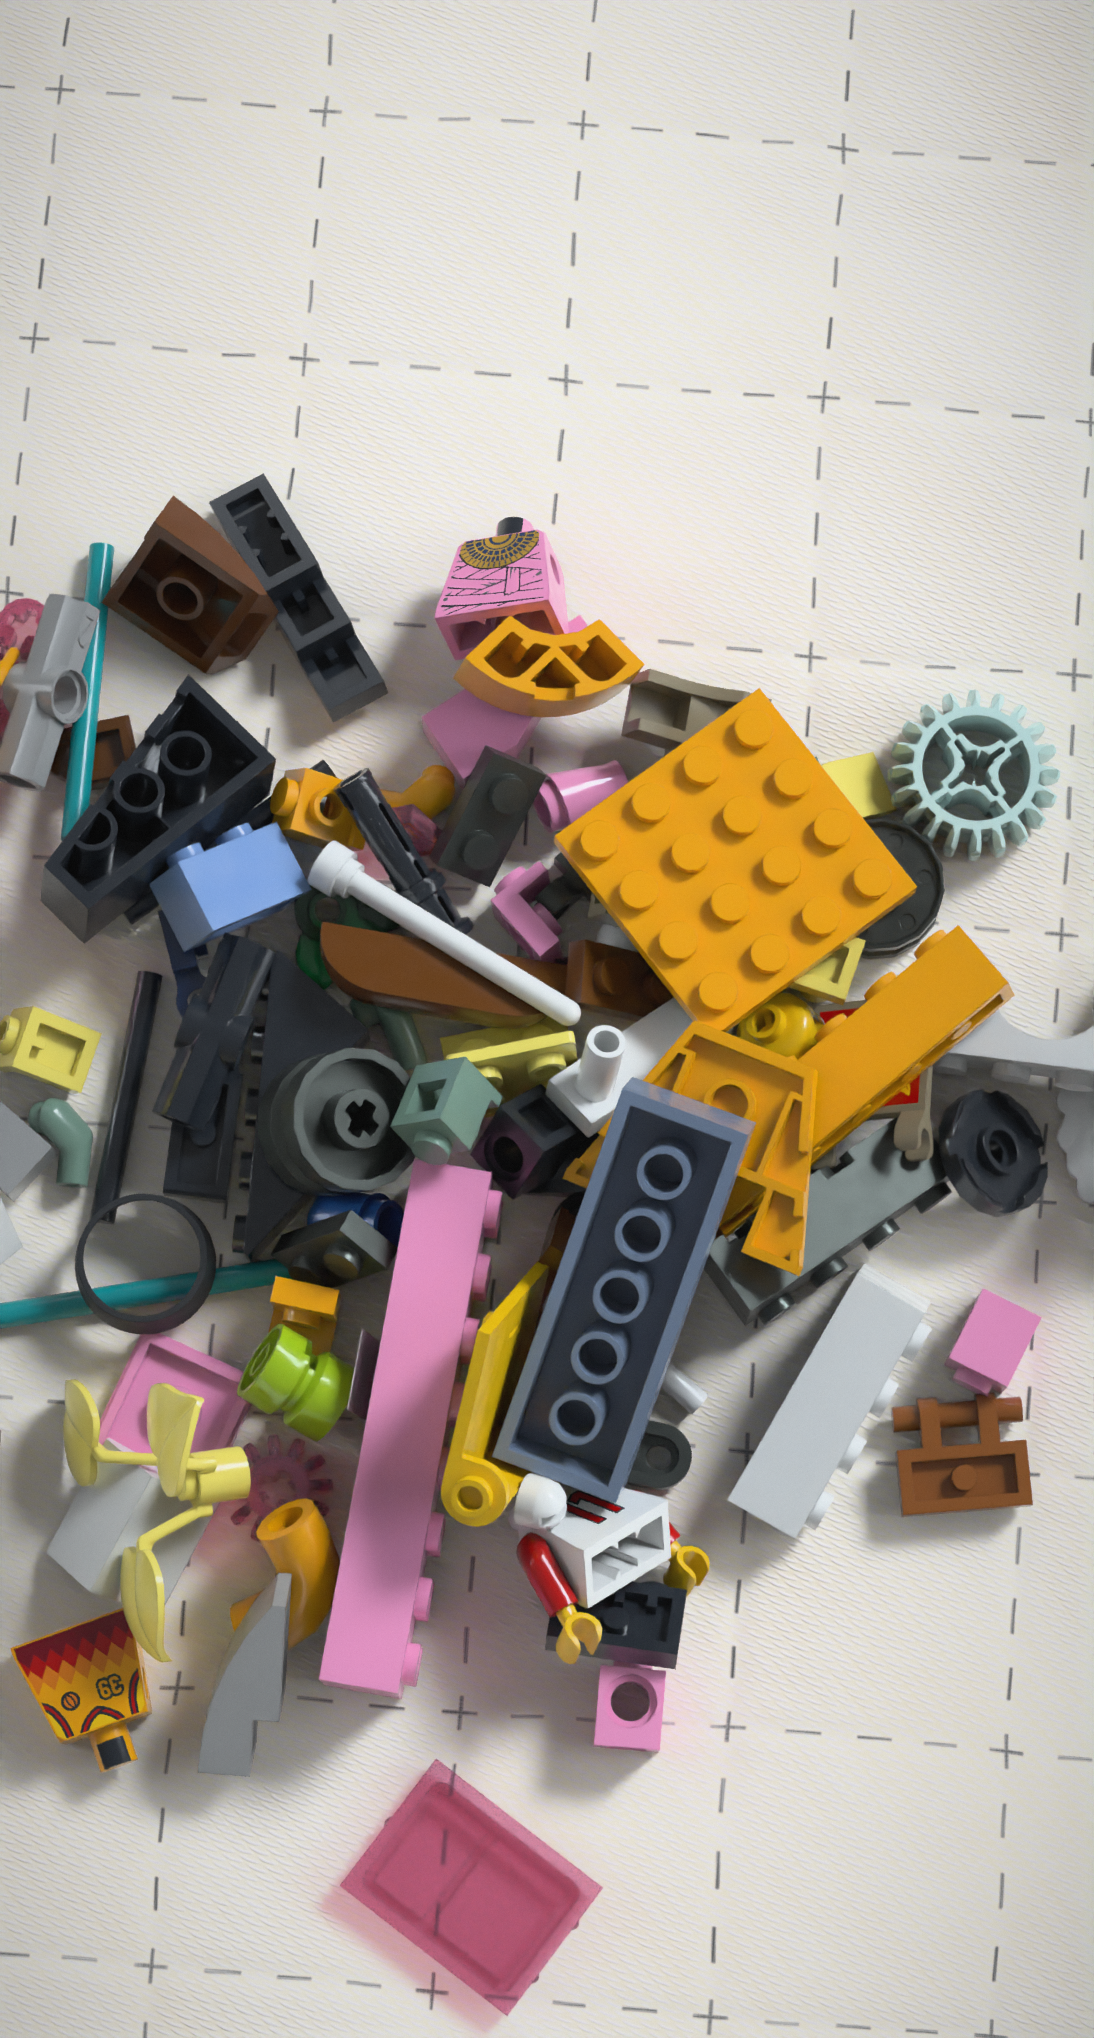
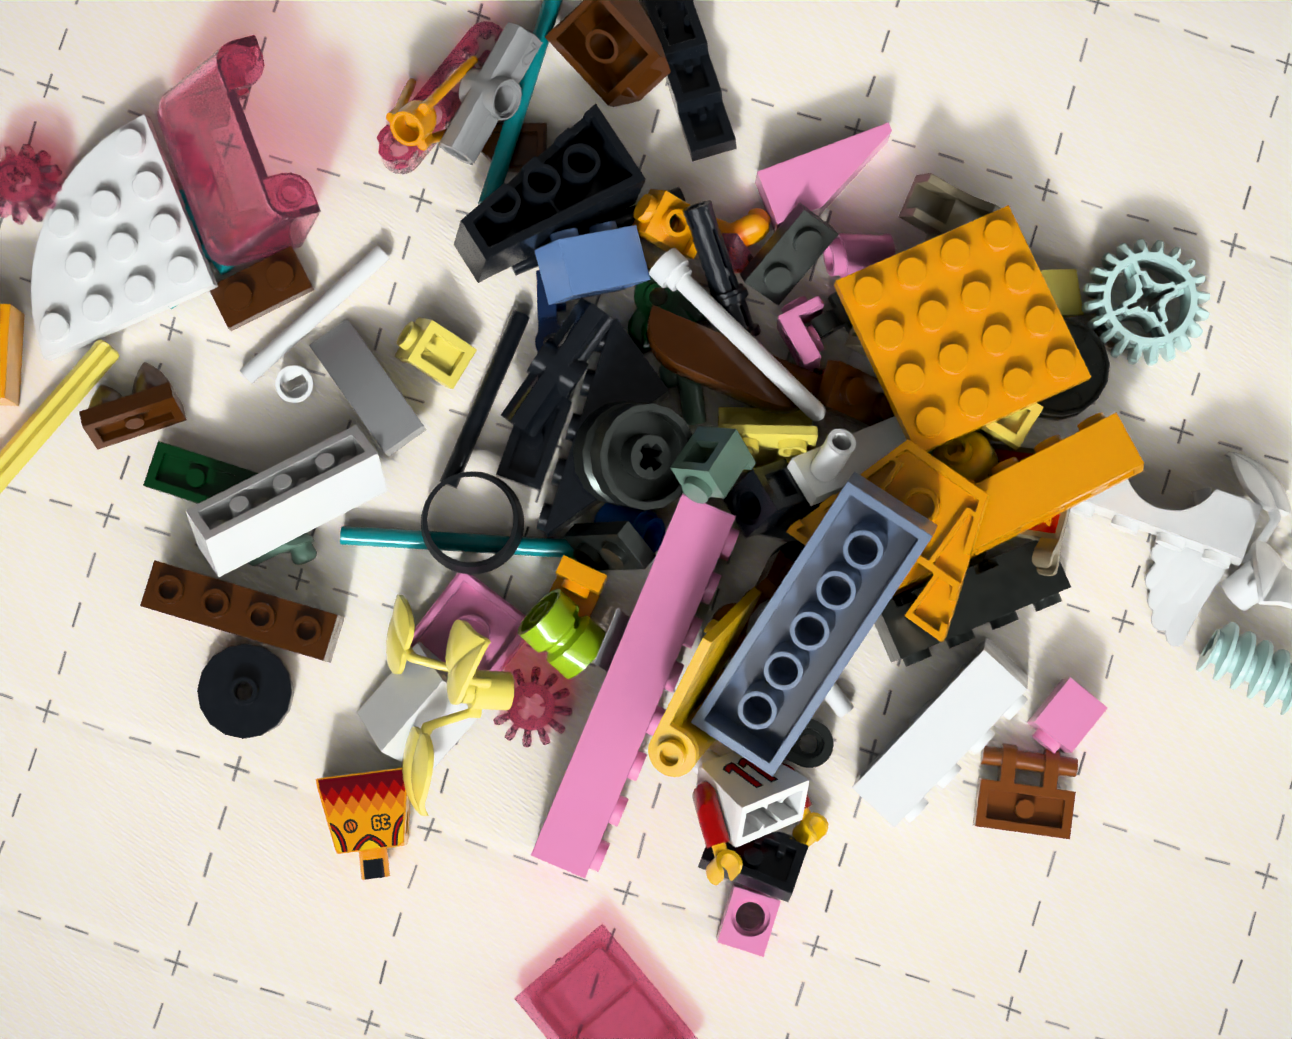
camera: 10 degrees right, 5 degrees up
(69, 1134) = (438, 416): sand green arm -> none
(248, 1683) = (480, 842): light grey slope -> none
(304, 1547) = (534, 781): light orange cylinder -> none
(501, 578) = (836, 95): bright pink torso -> none
(539, 1503) = (718, 764): white hinge -> none
(547, 672) = (857, 160): light orange brick -> none
(992, 1152) = (1098, 580): black plate -> none

